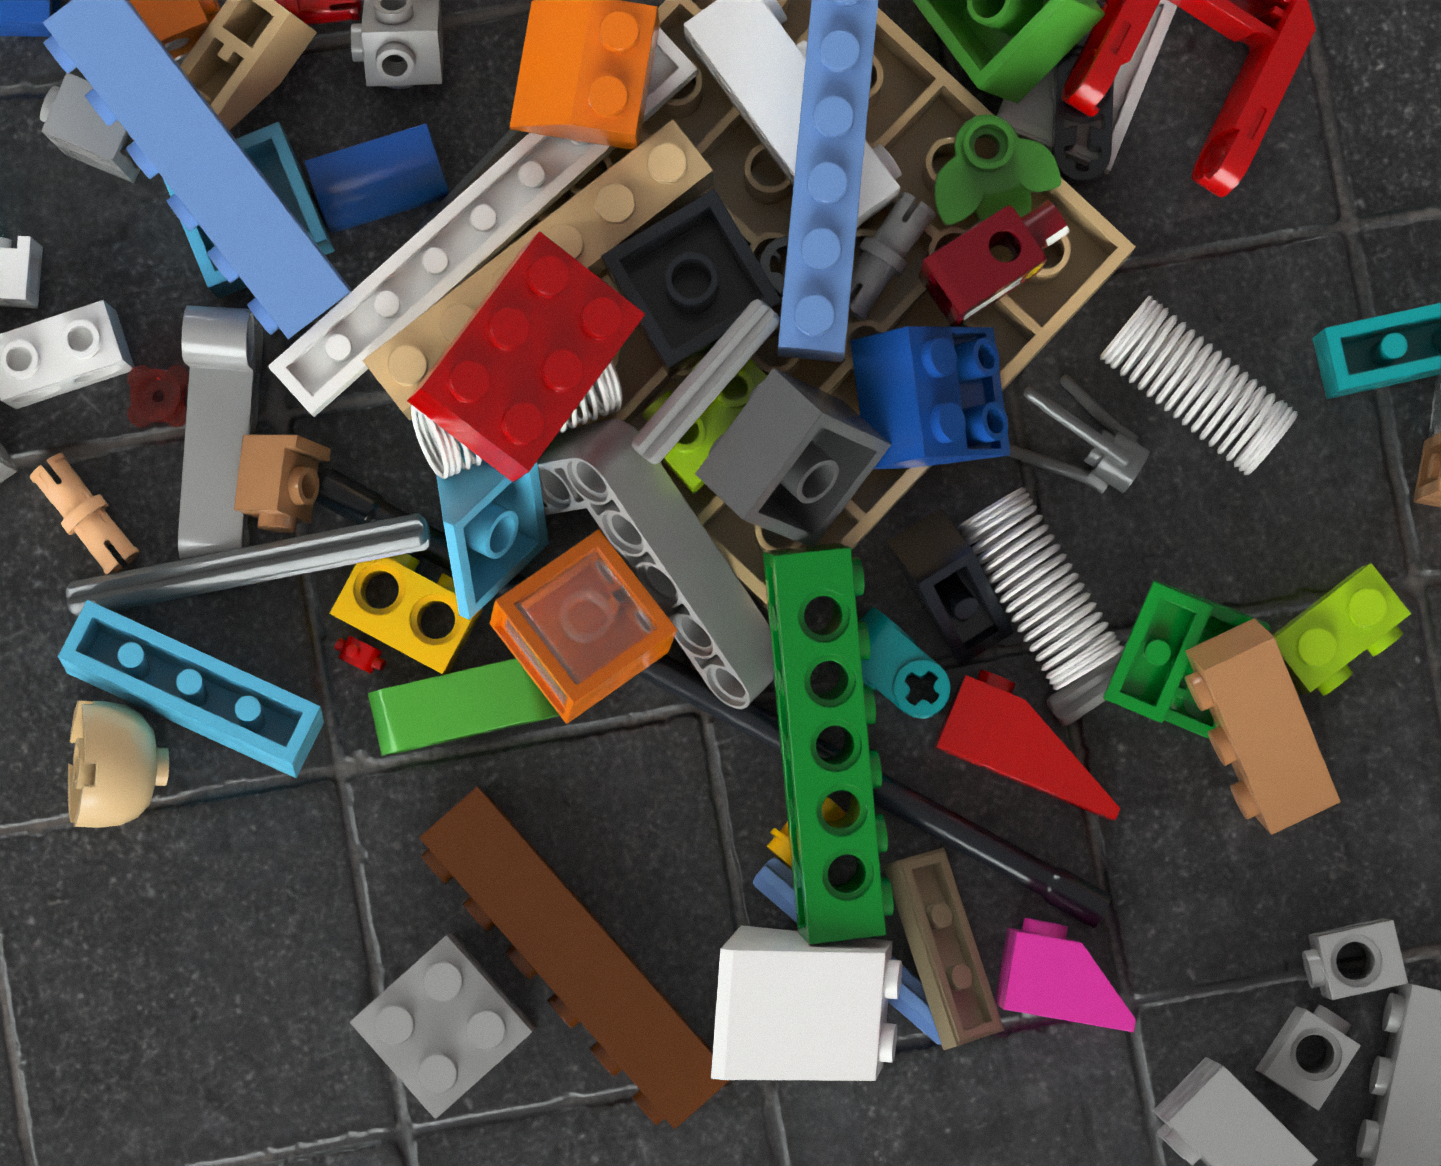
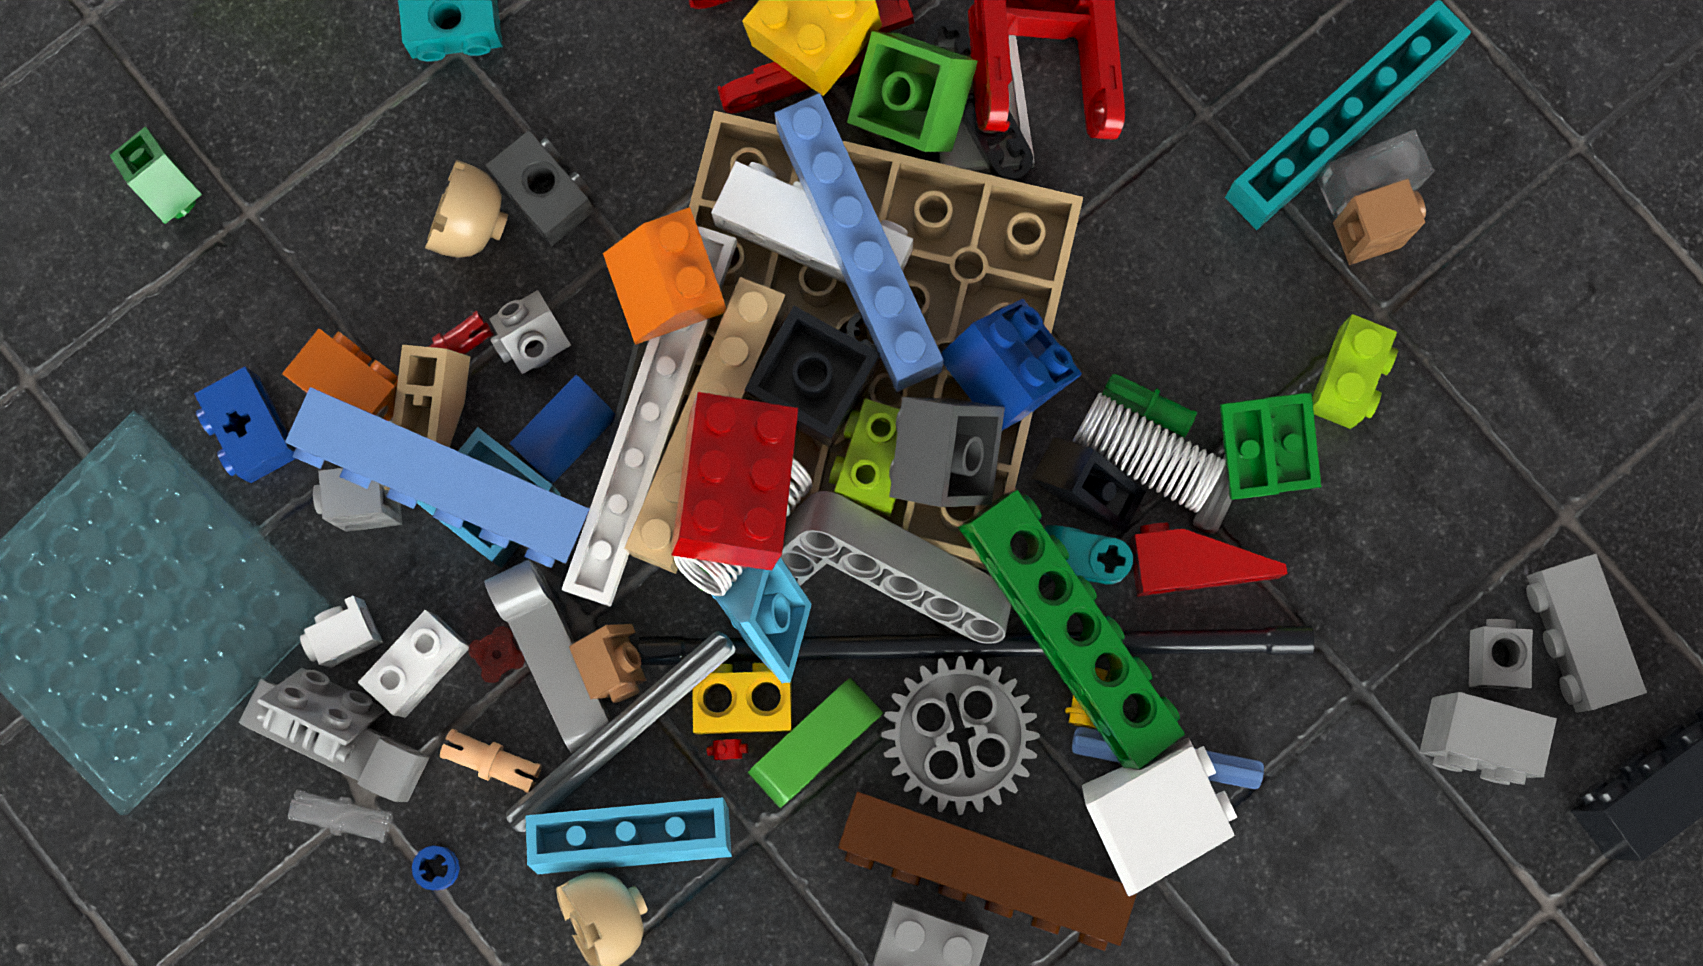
camera: 30 degrees left, 5 degrees down
(582, 626) = (867, 644): piece -> none
(690, 805) = (1003, 724): none -> light grey gear
(706, 381) = (861, 433): light grey axle -> none
(886, 252) = (927, 282): light grey pin -> none
(943, 948) = (1225, 723): dark tan tile -> none
(966, 276) = (992, 268): dark red torso -> none
(988, 185) = (973, 207): bright green plate -> none
(1057, 979) = (1311, 698): dark pink slope -> none
(1076, 533) = (1150, 404): none -> green axle
(1112, 453) = (1142, 341): dark grey plant -> none
(1141, 330) = (1231, 276): white piece -> none
(1260, 727) = (1344, 459): medium nougat brick -> none
(1383, 959) = (1508, 564): light grey brick -> none

